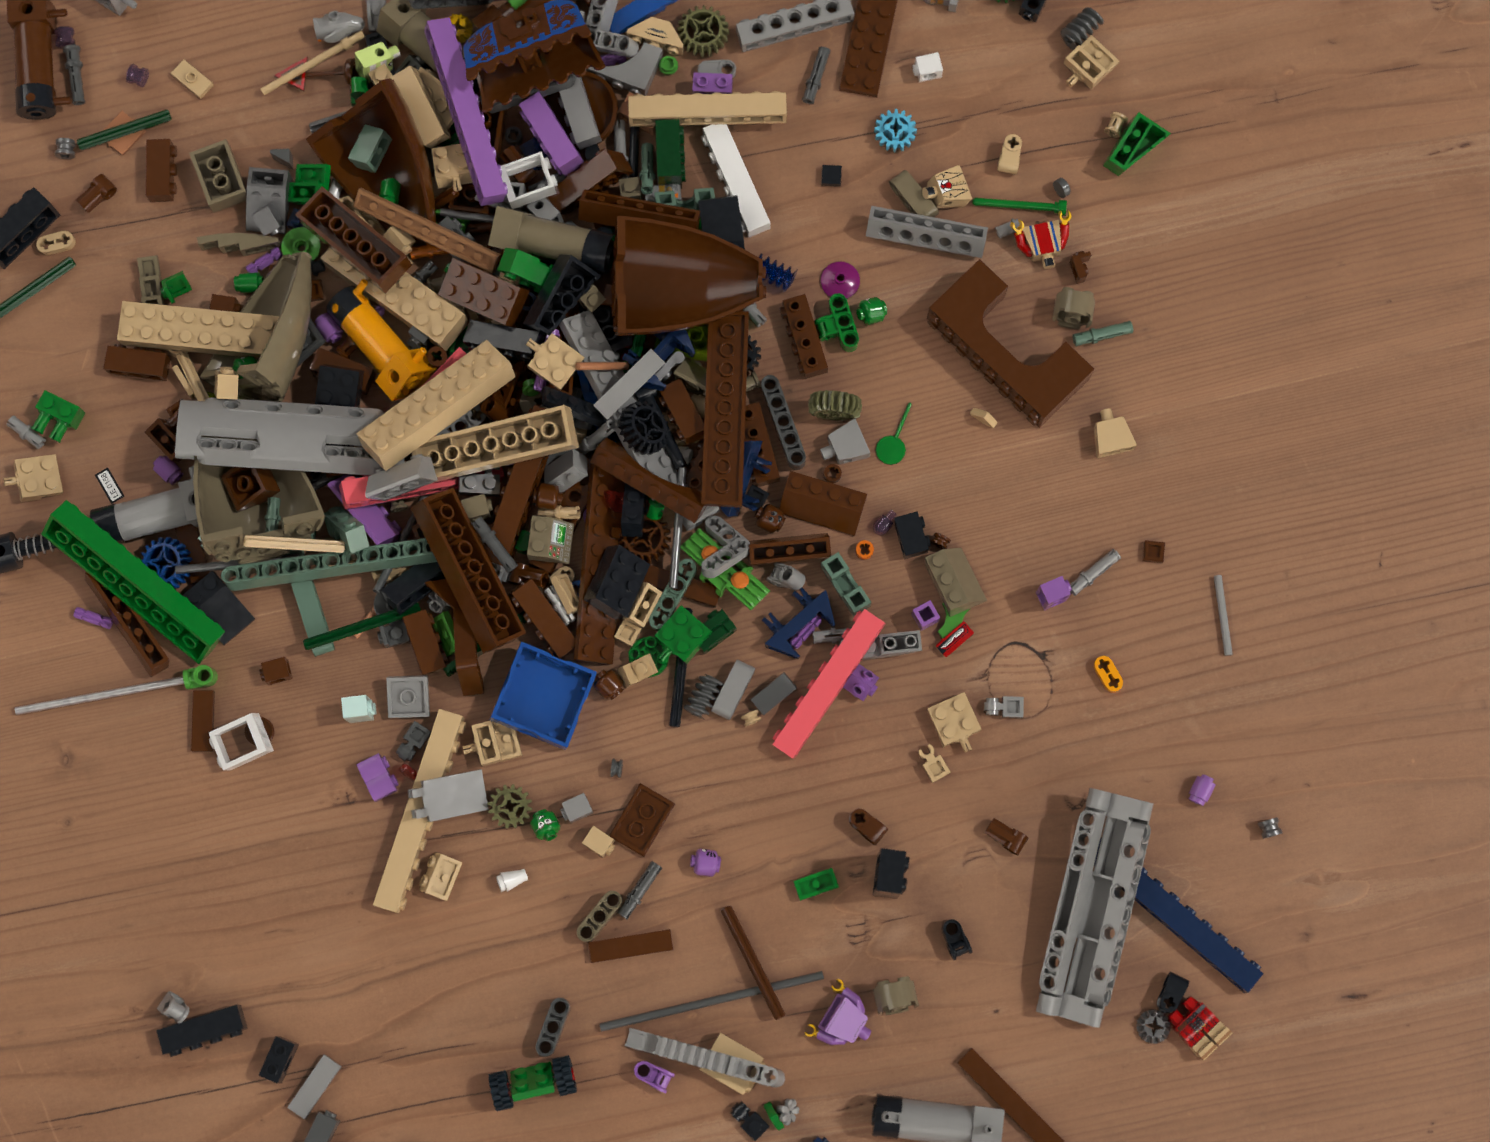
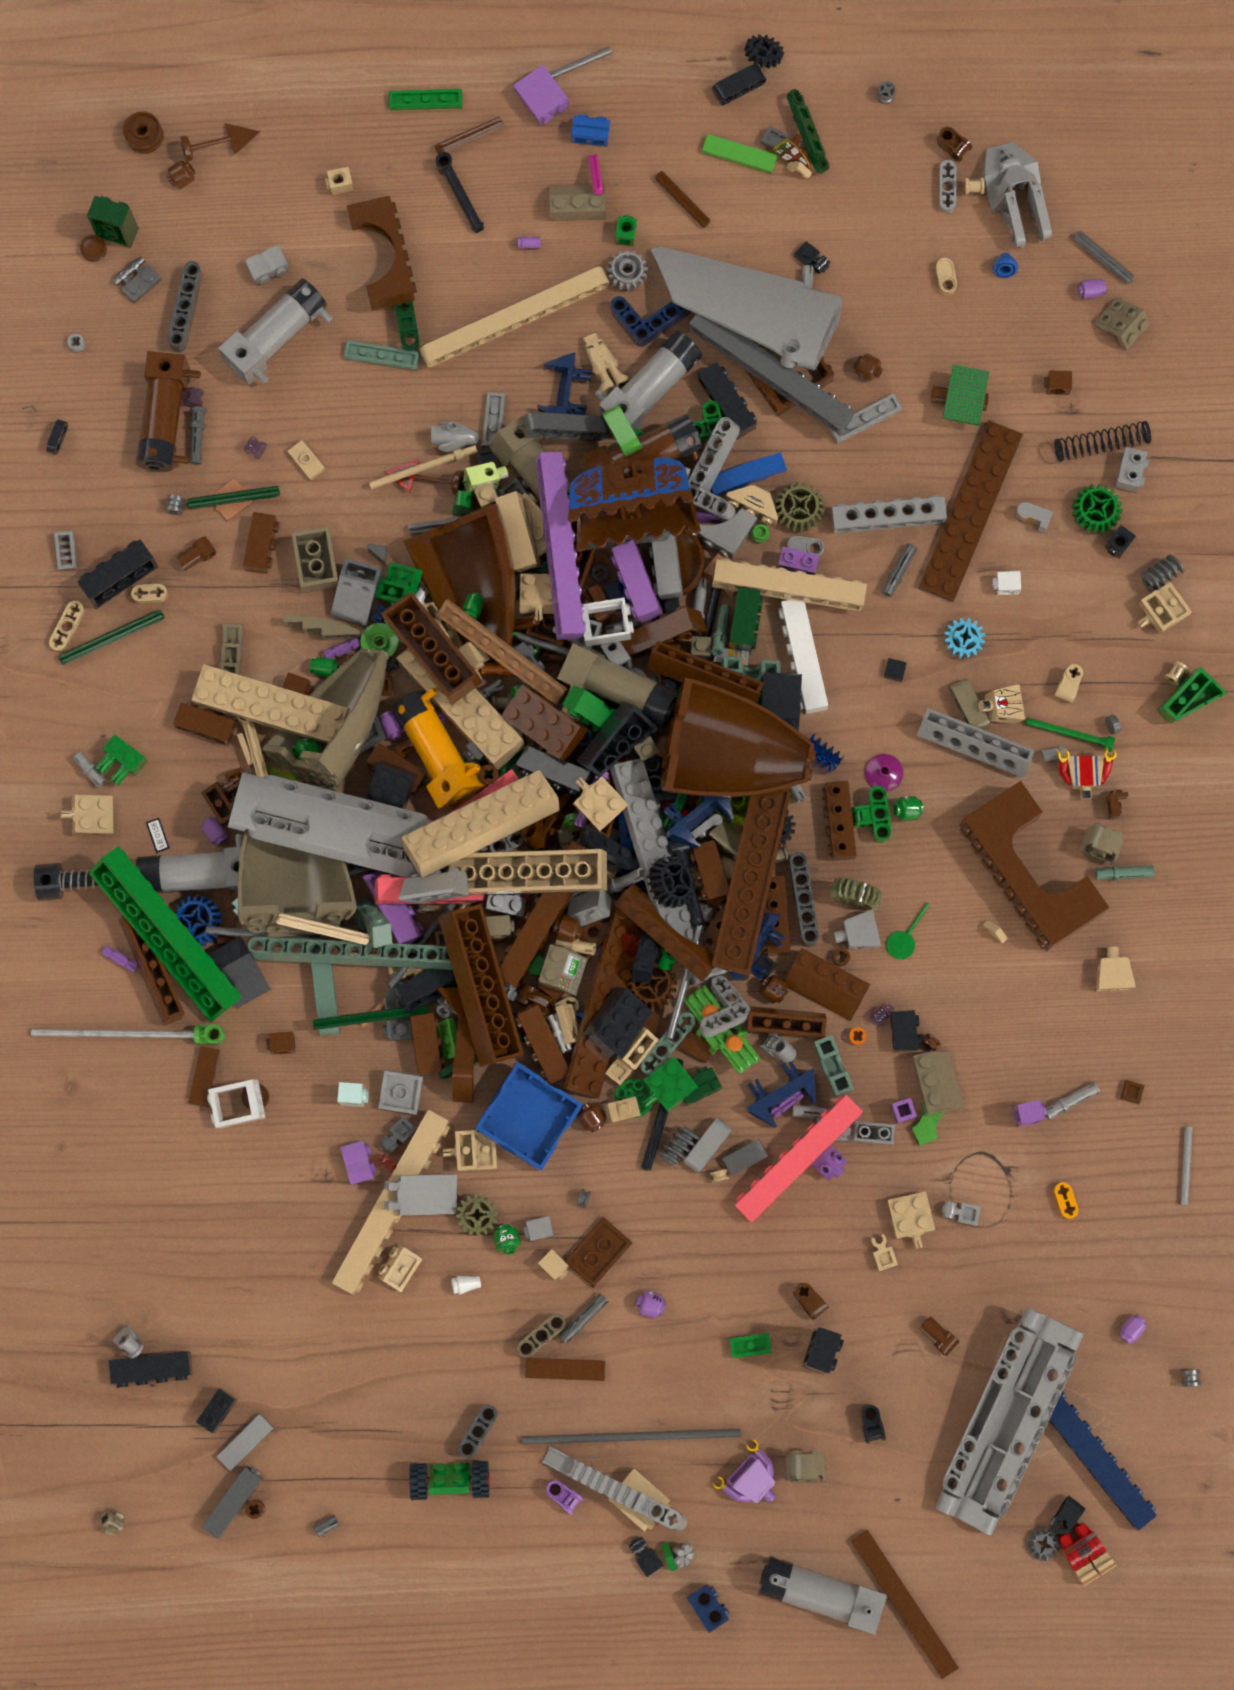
camera: 10 degrees right, 0 degrees up
(175, 286) = (254, 657): green bracket -> none
(226, 383) = (287, 763): tan brick -> none
(249, 486) = (290, 865): reddish brown slope -> none
(268, 220) = (353, 611): flat silver brick -> none
(272, 518) = (306, 896): sand green pin -> none
(370, 148) = (462, 561): sand green brick -> none
(466, 25) = (574, 456): yellow gear -> none
(489, 537) = (509, 965): dark grey pin -> none
(602, 366) = (643, 815): nougat bar -> none
(629, 384) = (665, 838): light grey tile -> none
(753, 962) = (677, 1408): reddish brown axle -> none
(954, 639) = (926, 1138): sticker -> none

